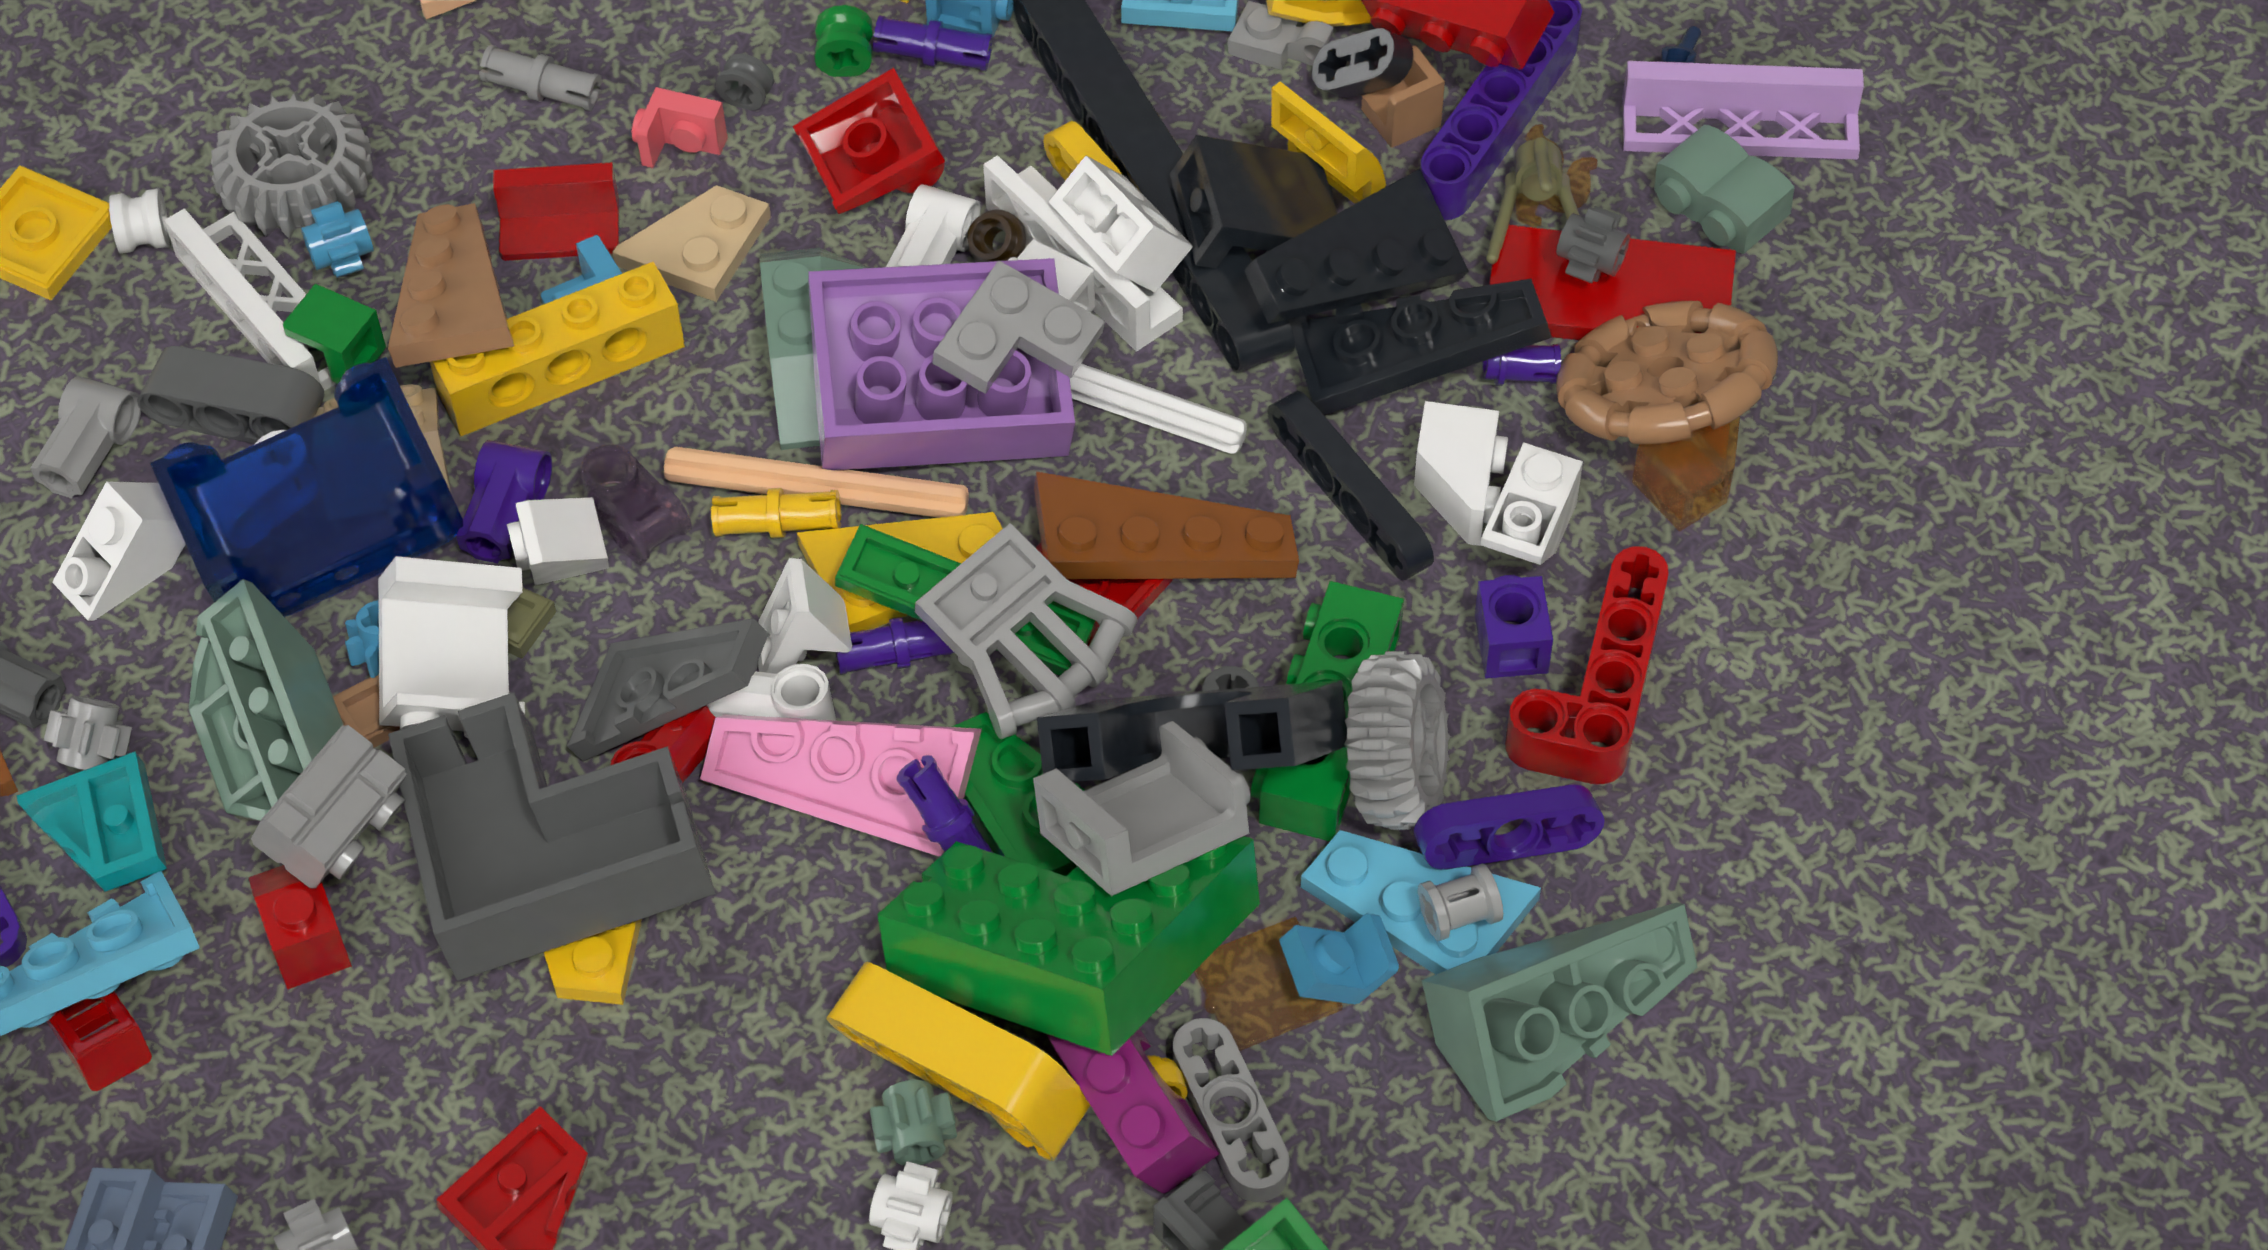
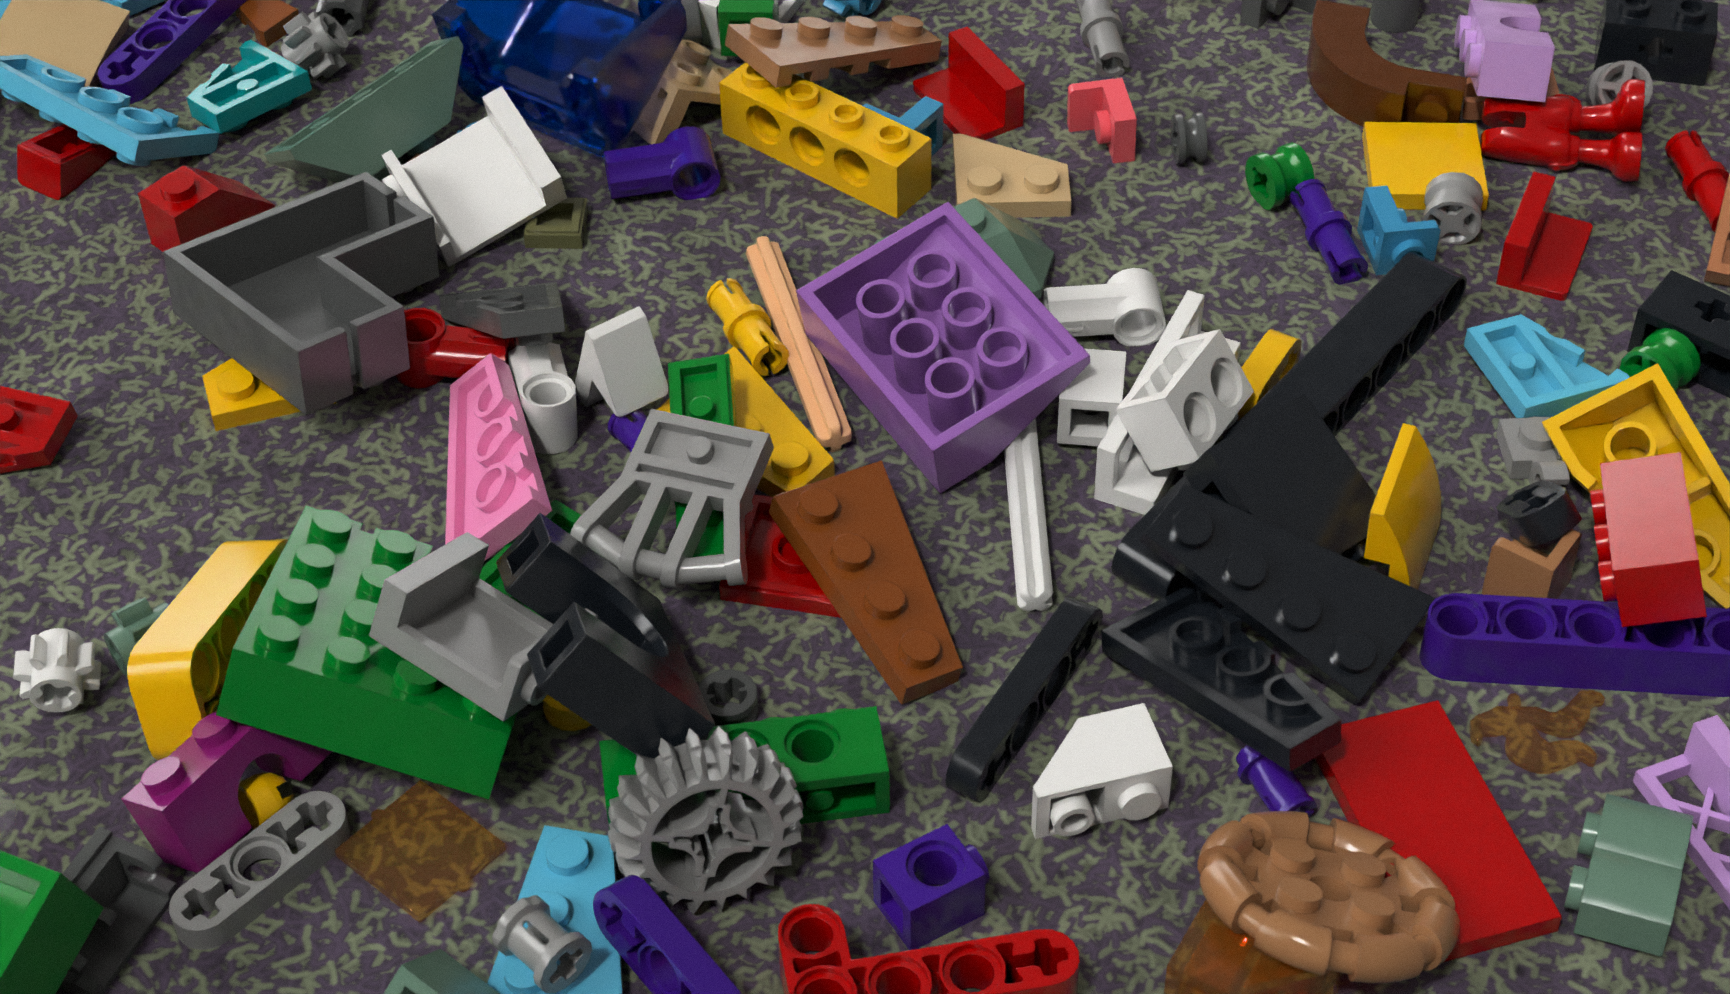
camera: 65 degrees right, 10 degrees down
(329, 807) = (256, 152): light grey brick -> none
(558, 538) = (618, 195): white slope -> none
(638, 508) = (697, 234): clear purple piece -> none
(871, 143) = (1180, 233): red slope -> none
(944, 814) = (459, 505): dark purple pin -> none
(985, 228) = (1138, 341): dark brown plate -> none
(1013, 314) = (995, 345): light grey plate -> none
(1340, 964) = (448, 882): dark azure bracket -> none
(1534, 505) = (1073, 847): white slope -> none
(1538, 177) = (1511, 701): olive plant -> none
(1593, 244) = (1446, 770): dark grey gear -> none

